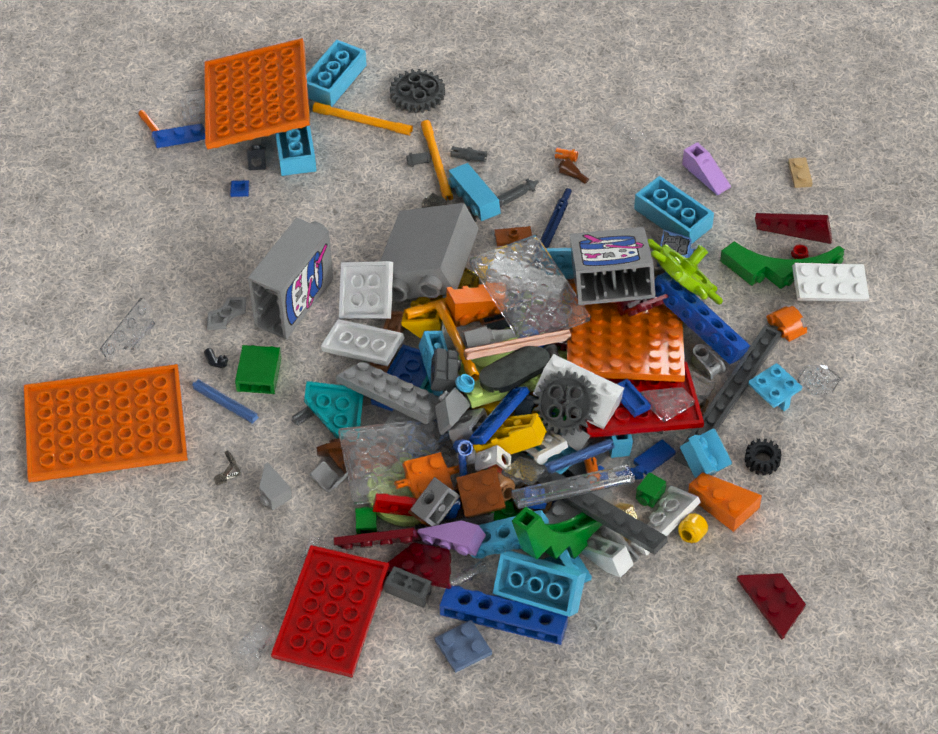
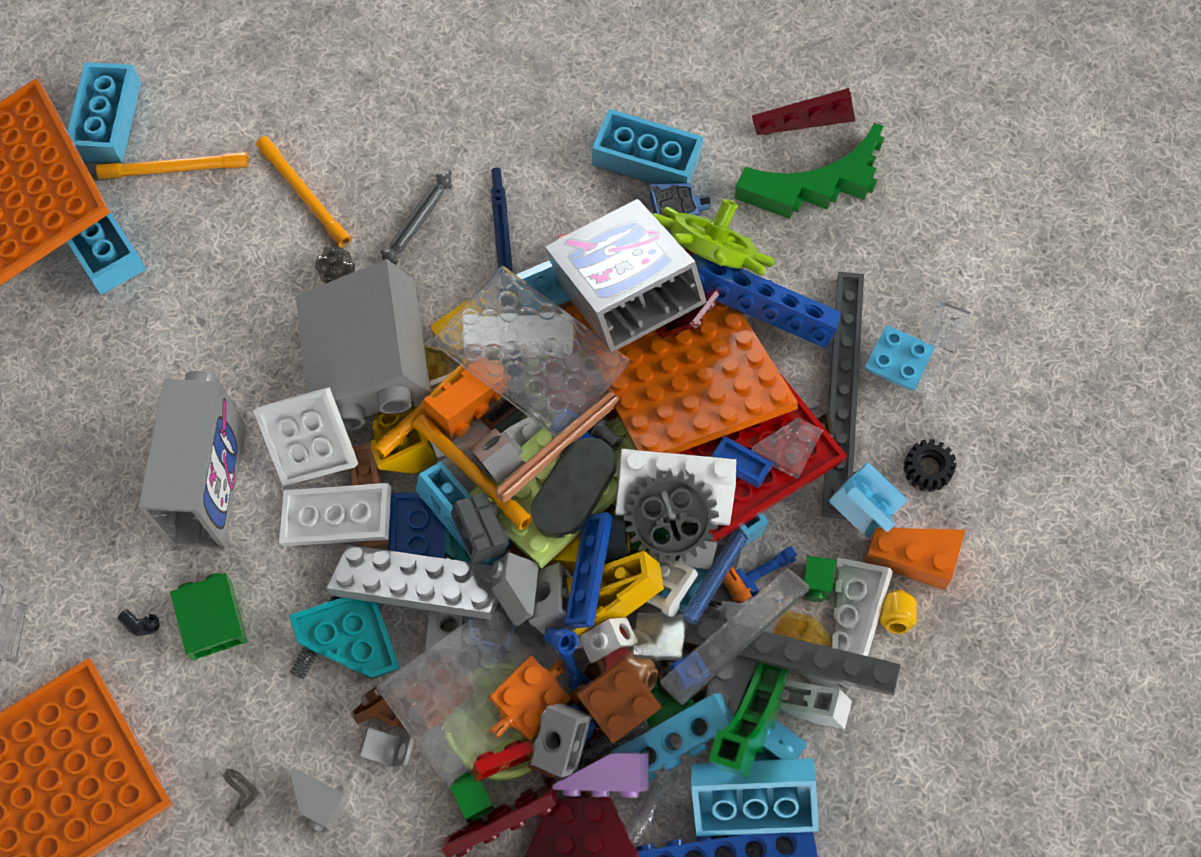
camera: 25 degrees left, 15 degrees up
(221, 317) = (116, 553): light grey tile -> none
(225, 401) = (183, 685): medium blue axle -> none
(239, 188) = (51, 337): blue tile -> none
(256, 150) = (51, 271): black bracket -> none
(417, 91) = (228, 97): dark grey gear -> none
(419, 158) = (276, 198): dark grey pin -> none
(465, 383) = (519, 540): medium azure plate -> none
(468, 154) = (341, 165): dark grey pin -> none
(474, 192) = (378, 222): medium azure brick -> none
(511, 235) = (457, 265): dark orange plate -> none
(568, 168) = (485, 139): reddish brown cone -> none
(572, 154) = (469, 118): orange pin -> none
(654, 456) = (795, 522): blue tile -> none
(704, 167) = (655, 74): lavender slope -> none
(706, 361) = (795, 355): light grey piece -> none
(774, 599) = (1046, 670): dark red wing -> none
(788, 322) = (862, 253): orange cylinder -> none
(800, 172) = (770, 34): tan plate -> none
(802, 249) = (829, 144): red plate -> none
(830, 282) = (889, 179): white plate -> none

